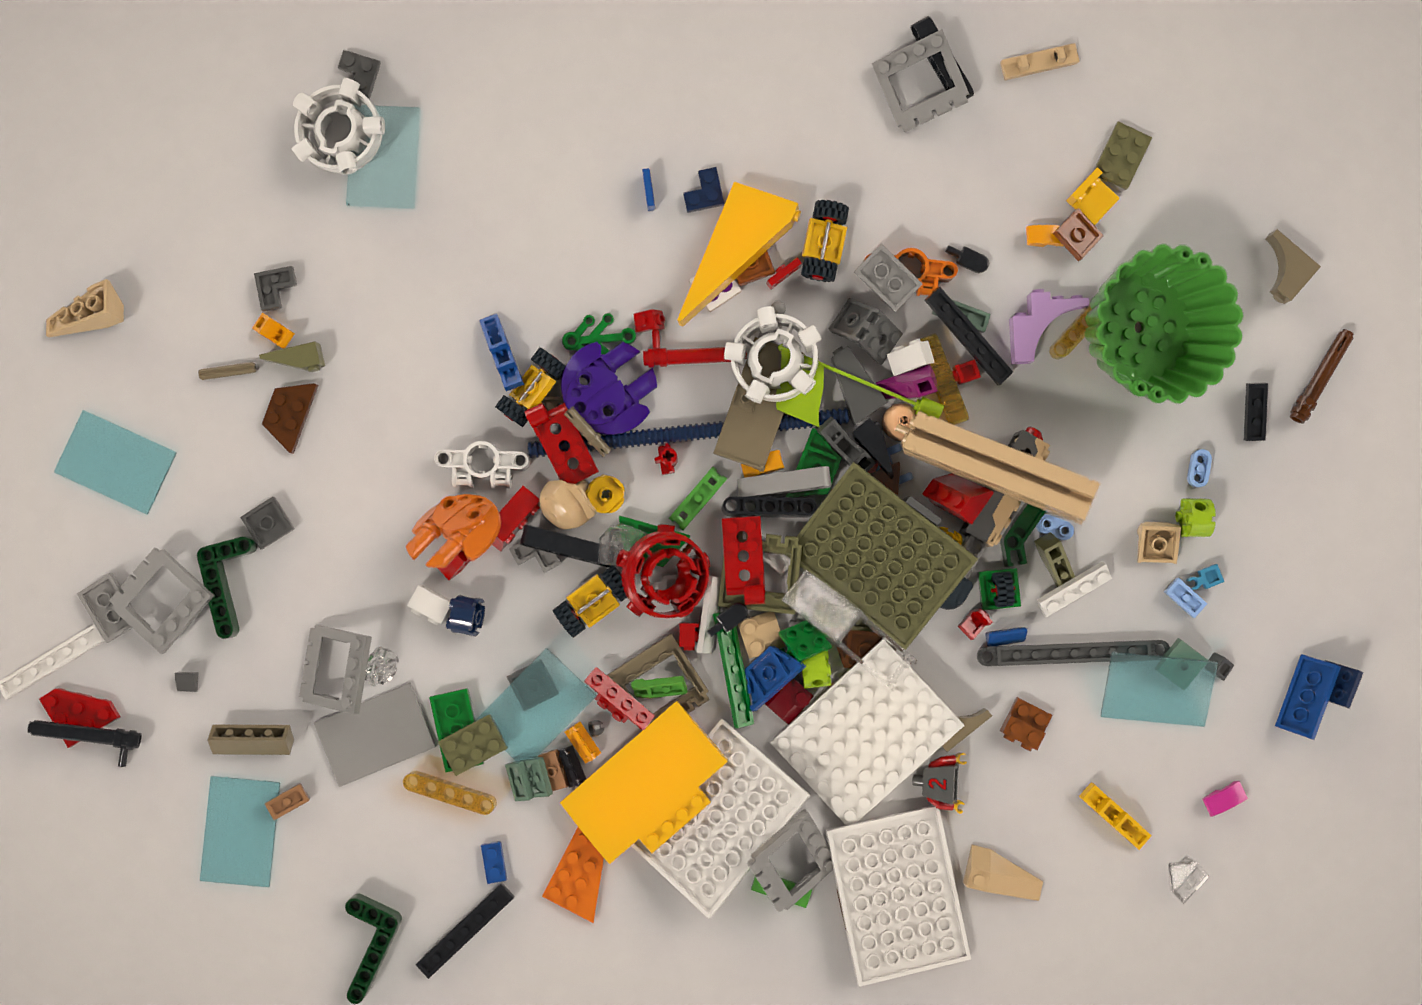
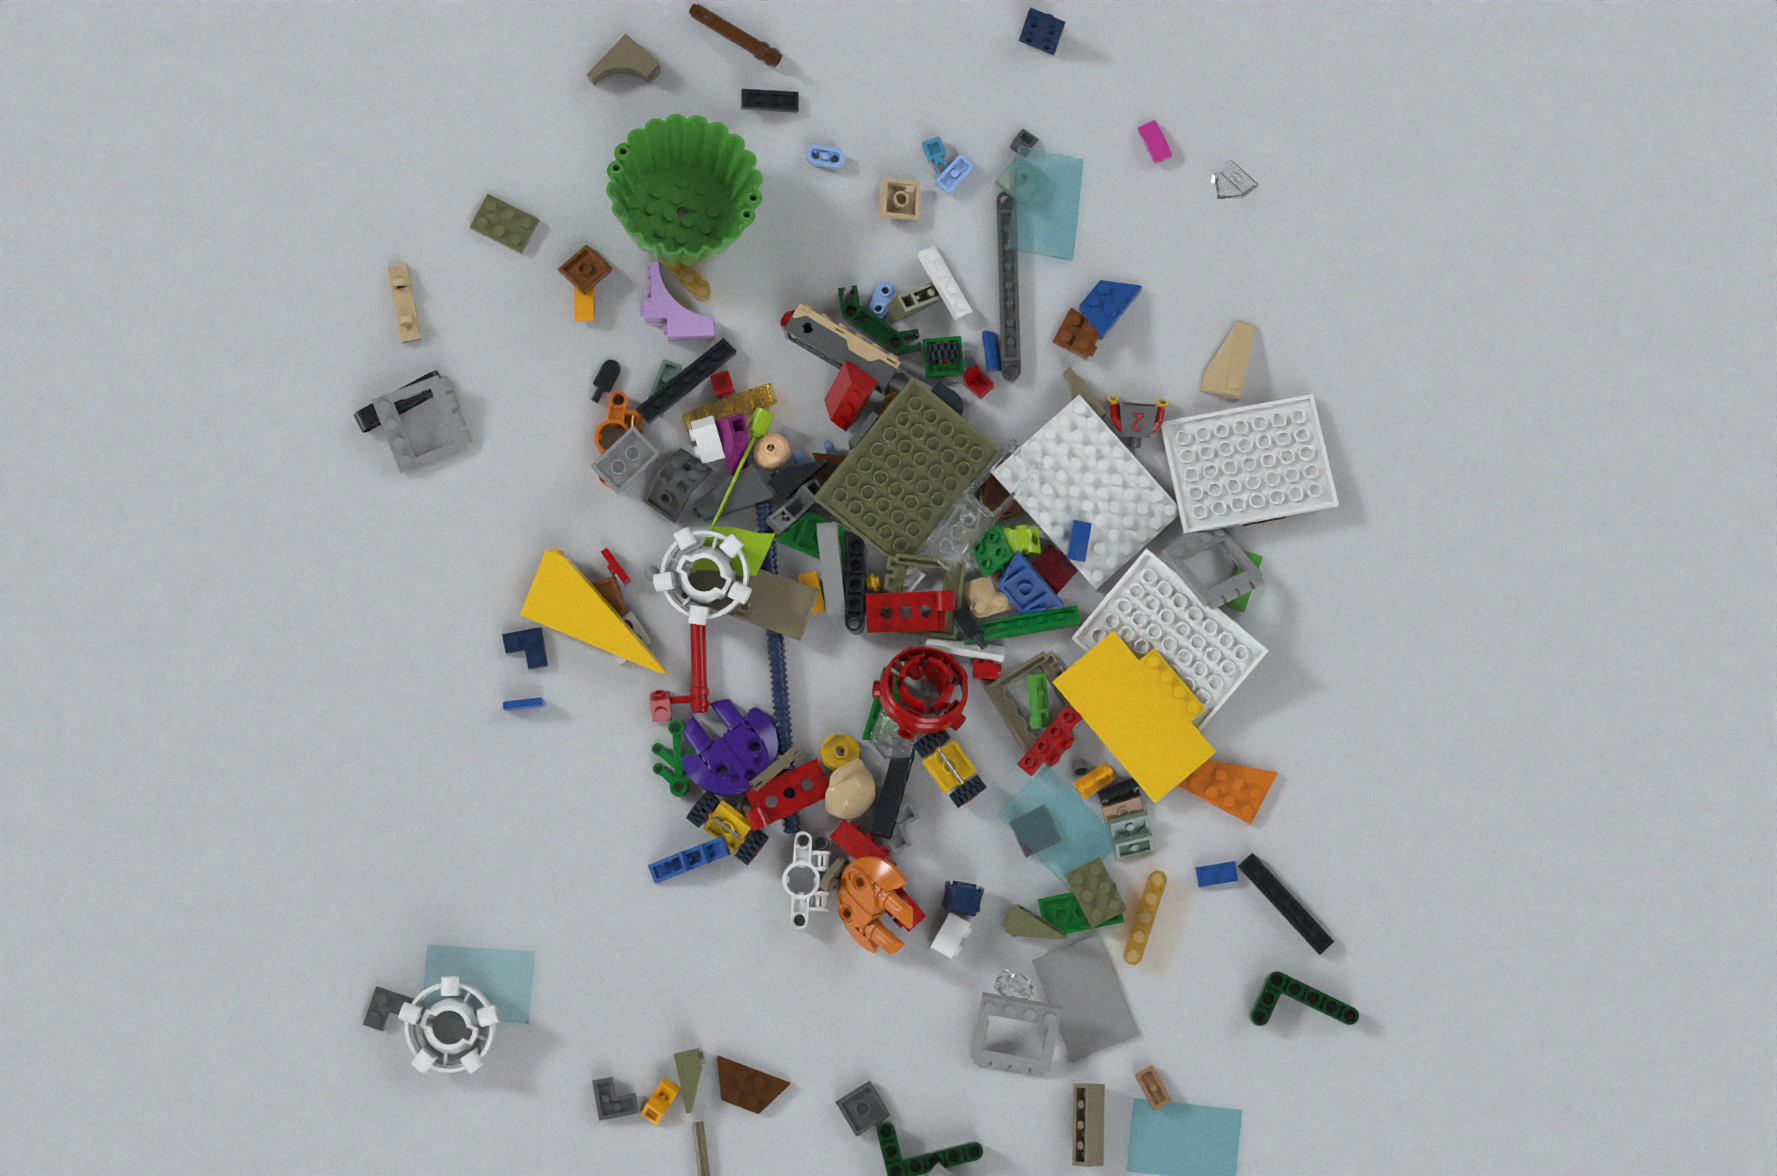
camera: 90 degrees left, 5 degrees down
(440, 680) = (1027, 924): none -> olive slope
(483, 488) = (832, 876): none -> dark tan plate
(516, 474) = (824, 839): none -> dark grey hinge
(667, 459) = (804, 689): red piece -> none
(698, 498) = (845, 658): bright green plate -> none
(772, 524) = (873, 583): none -> yellow plate
(817, 725) = (1078, 540): none -> blue slope
(824, 241) = (584, 524): plate -> none
(999, 467) = (821, 355): tan brick -> none
(1056, 752) = (1107, 304): none -> blue wing
(1093, 197) = (547, 253): yellow bracket -> none
(1115, 816) = (1171, 249): yellow slope -> none
(1196, 517) = (874, 162): lime brick -> none
(1307, 696) = (1054, 60): blue plate -> none

